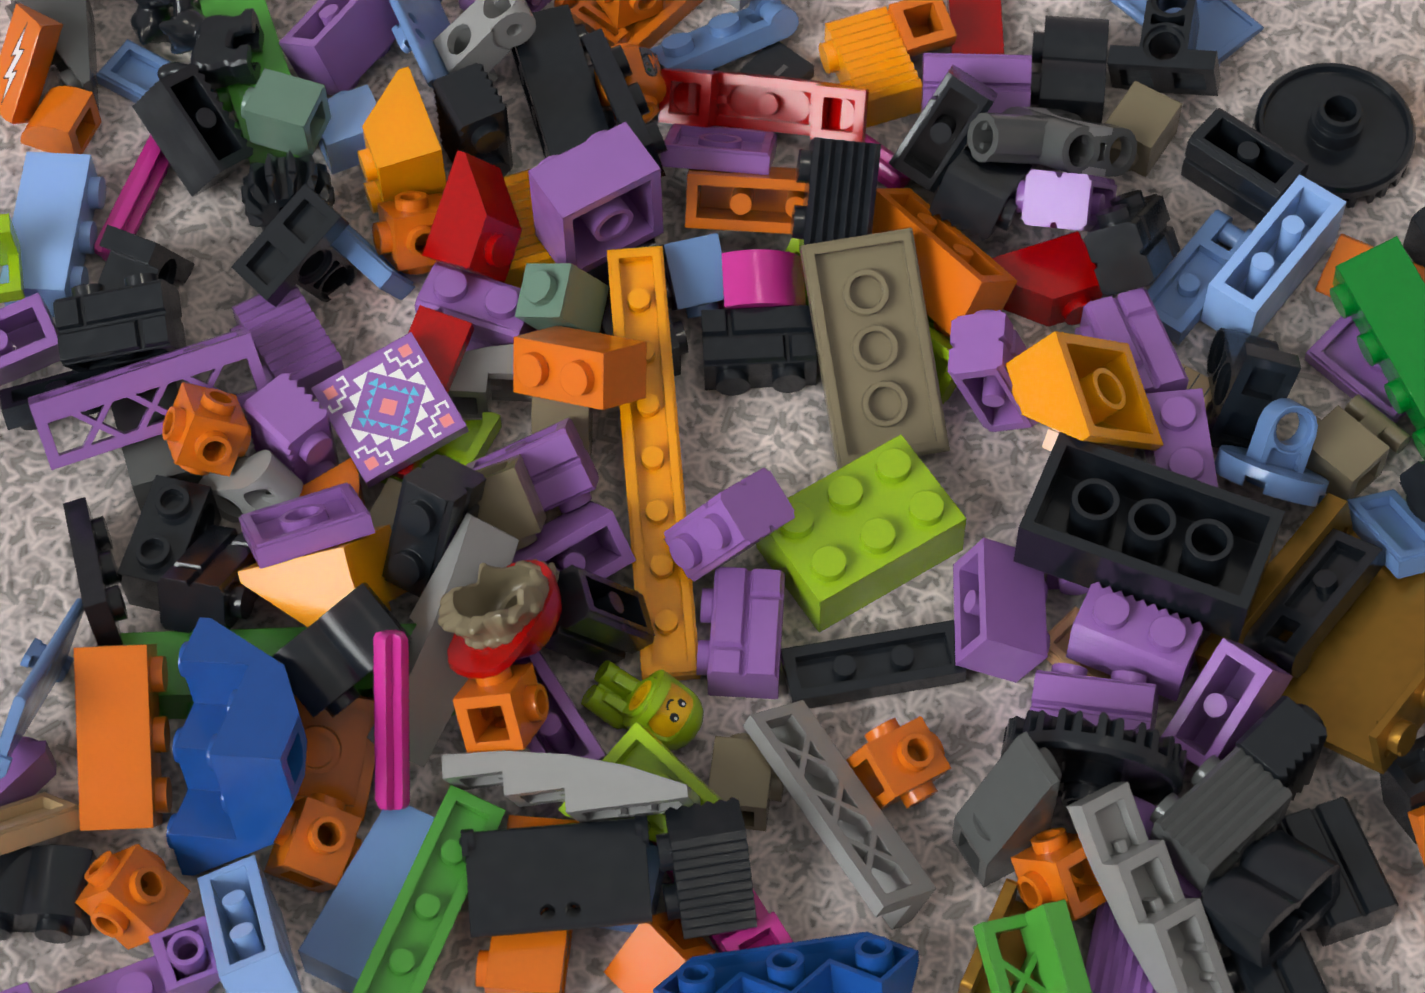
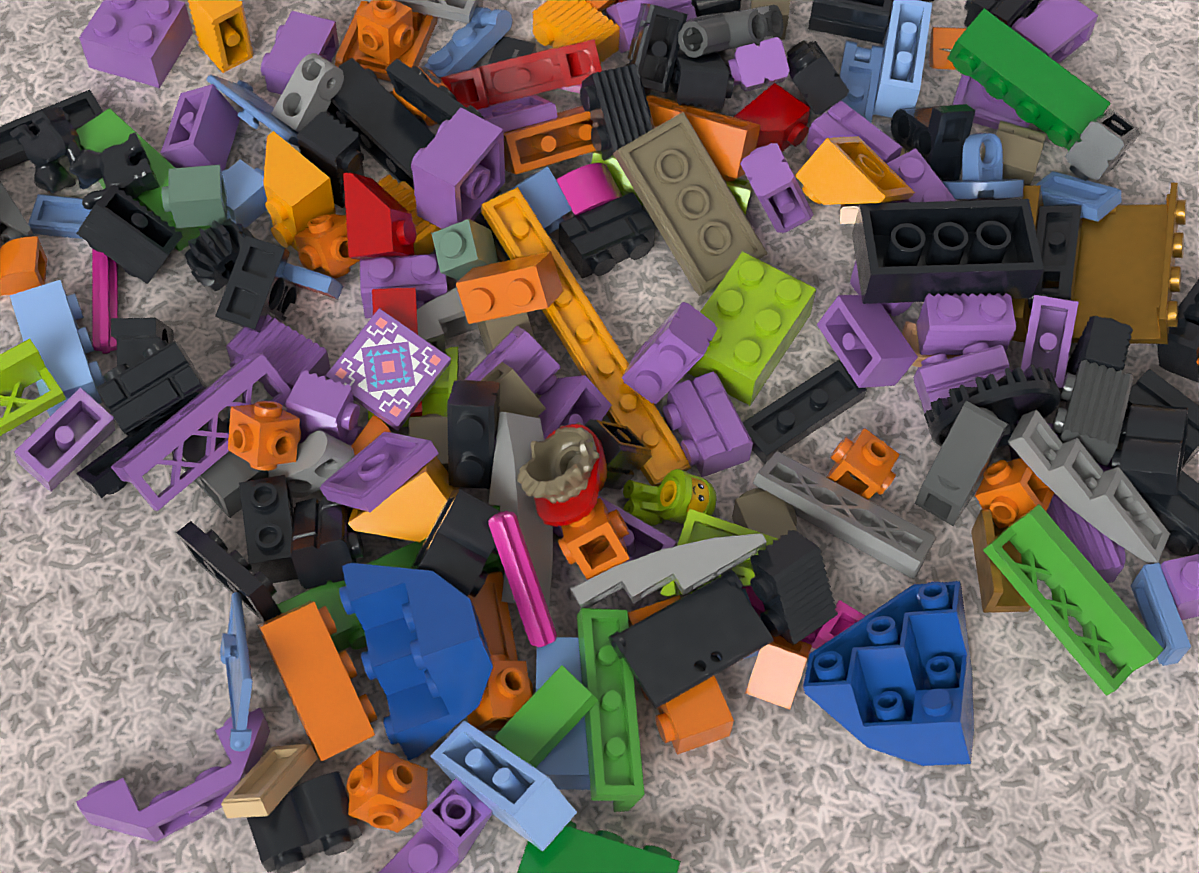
camera: 30 degrees left, 0 degrees up
(341, 893) = (546, 717): none -> bright green tile

